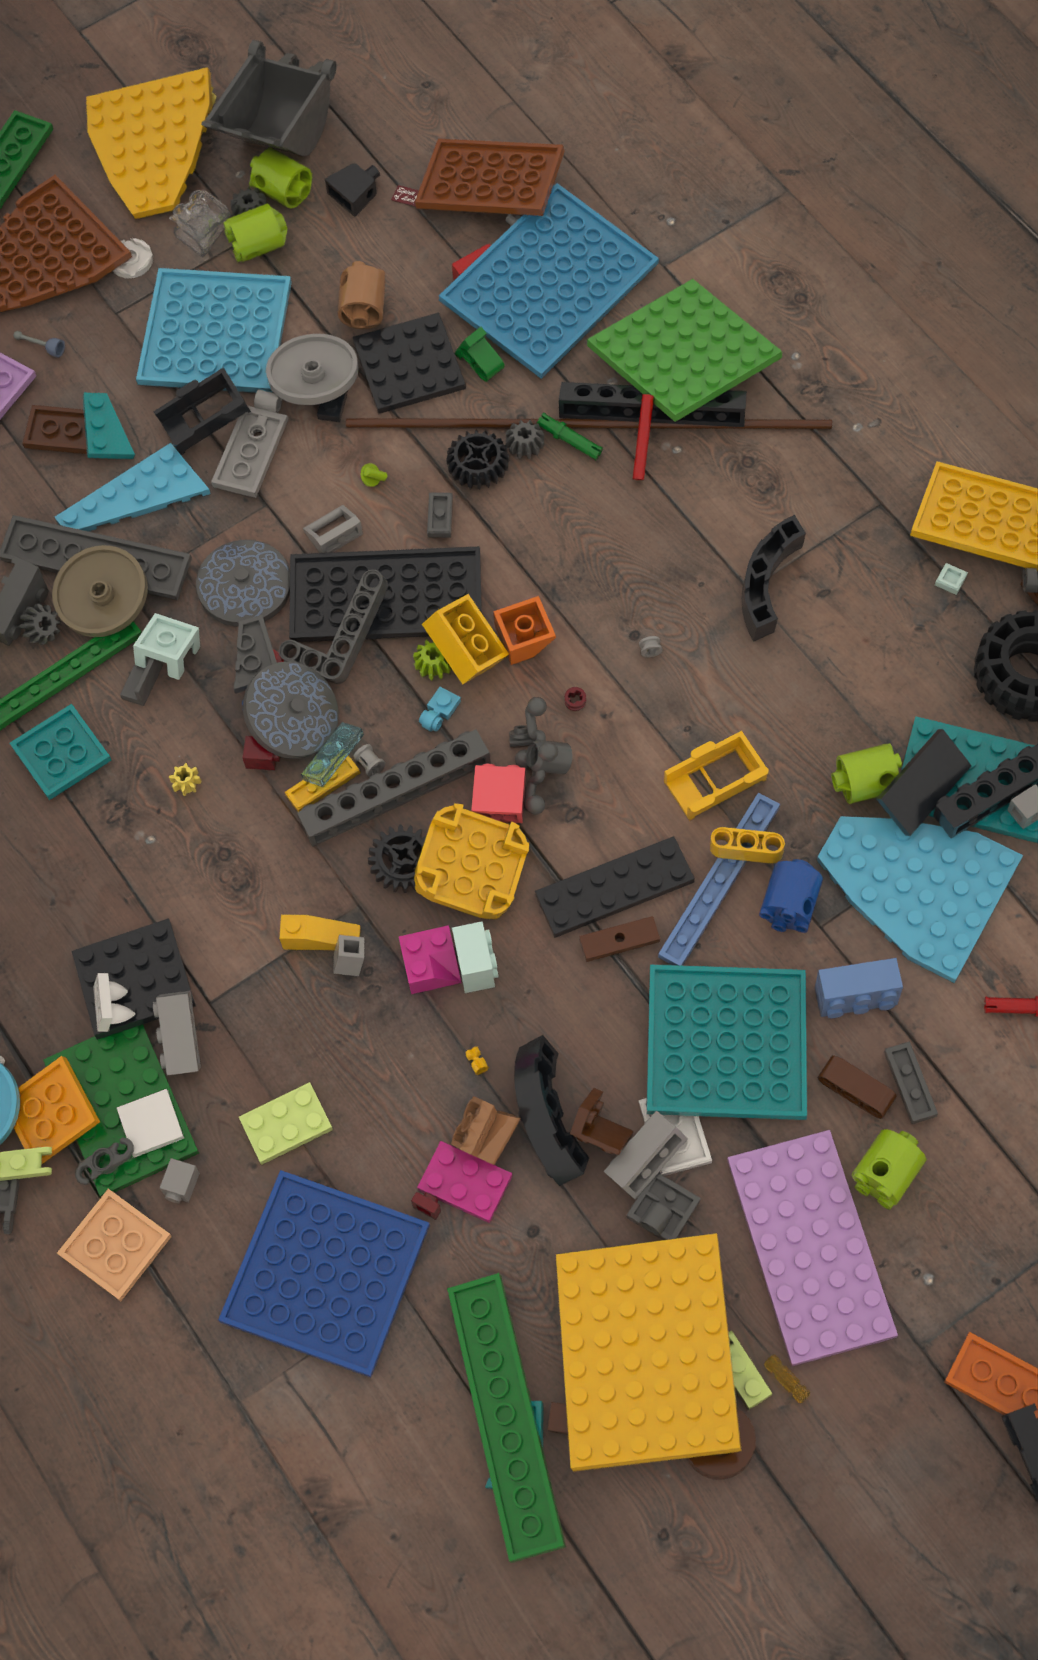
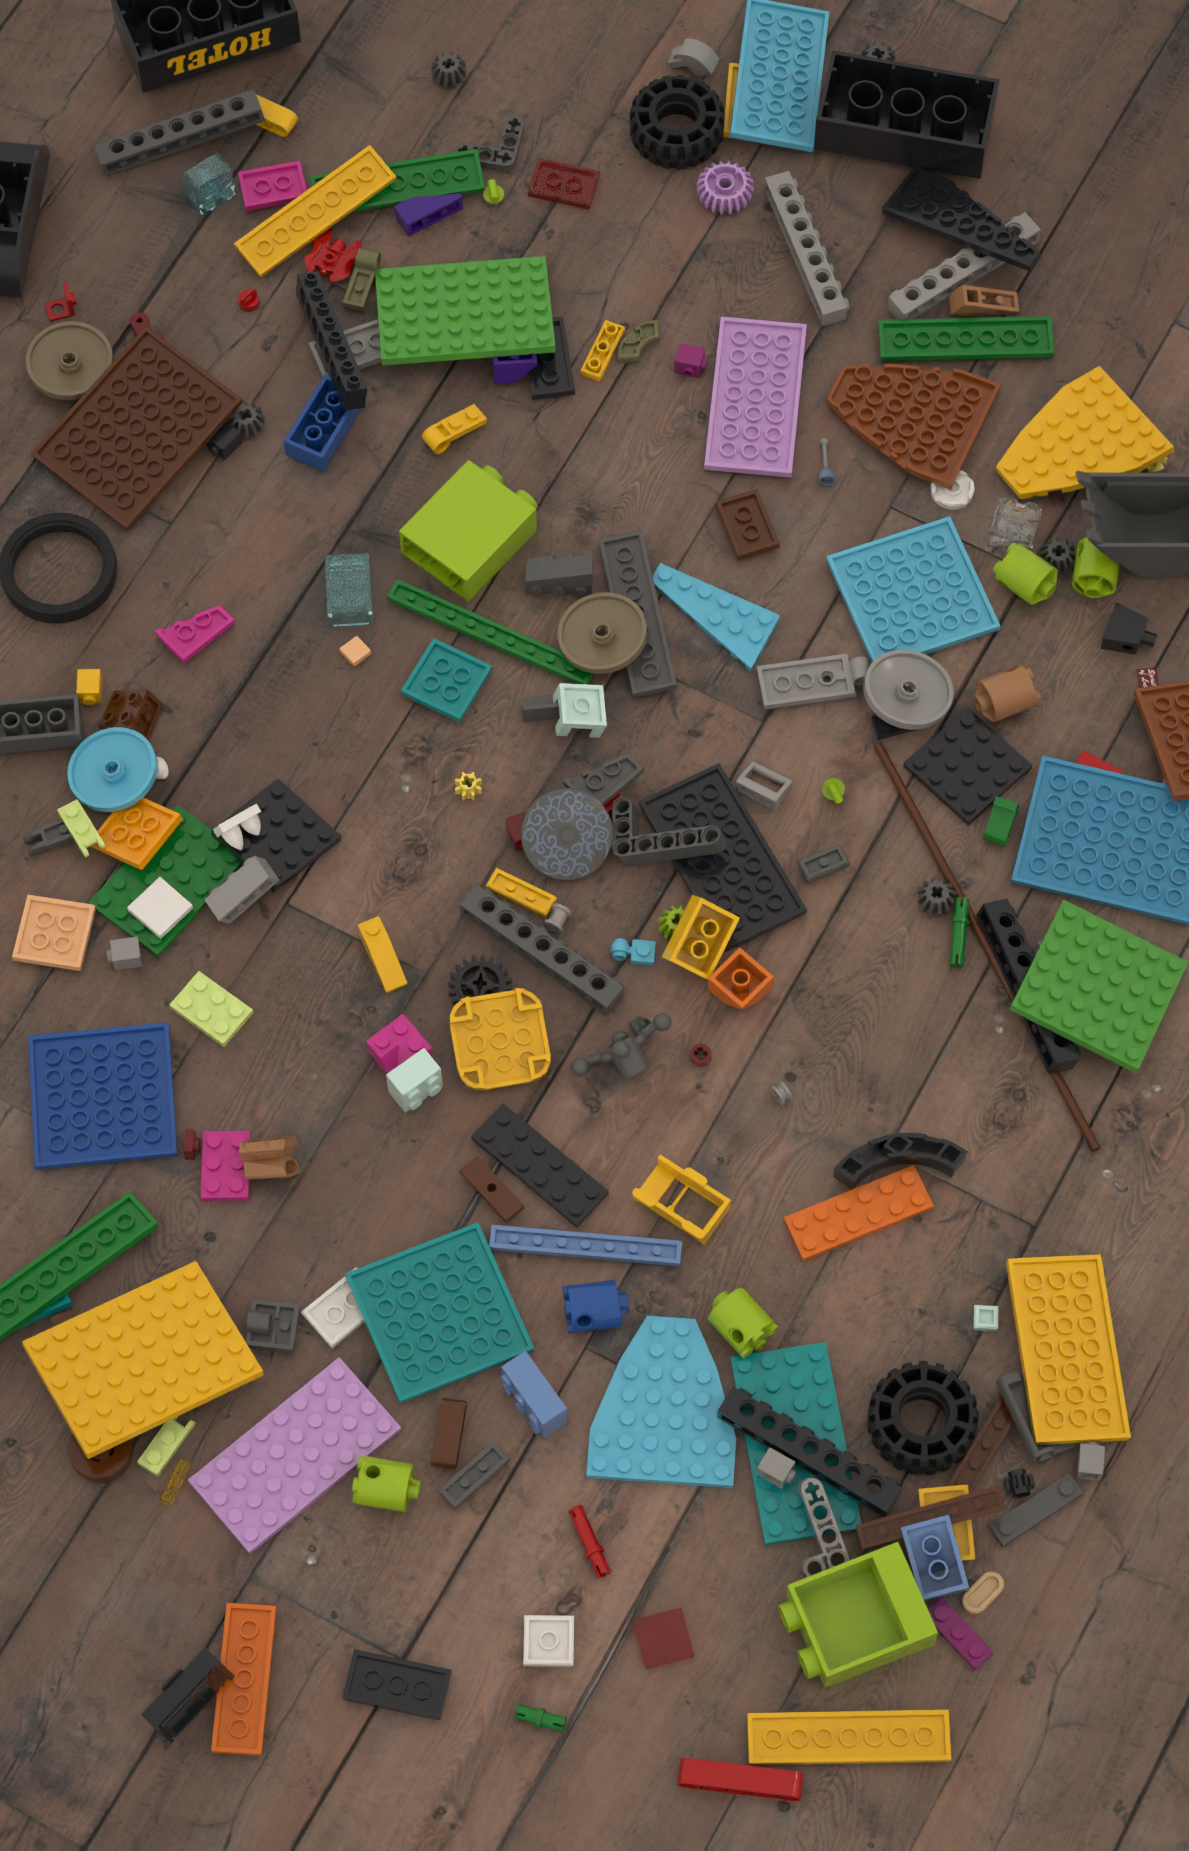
camera: 60 degrees right, 0 degrees up
(31, 624) = (550, 611): dark grey gear -> none
(93, 1161) = (109, 882): dark grey piece -> none
(103, 429) = (761, 557): teal wing -> none
(191, 396) = (829, 607): black piece -> none
(243, 582) = (676, 740): dark grey dish -> none
(332, 754) = (547, 887): clear light blue plate -> none
(348, 955) = (371, 985): light grey brick -> none
(476, 466) = (880, 858): black gear -> none
(479, 1064) = (328, 1130): yellow piece -> none
(499, 792) = (575, 1033): coral brick -> none
(542, 1112) = (303, 1191): black brick -> none
(594, 1129) = (312, 1242): reddish brown bracket -> none
(643, 437) = (985, 992): red piece -> none
(645, 1154) = (306, 1289): light grey brick -> none
(736, 837) = (622, 1239): yellow beam -> none
(799, 637) = (858, 1213): none -> orange plate
(924, 782) = (753, 1368): black tile -> none

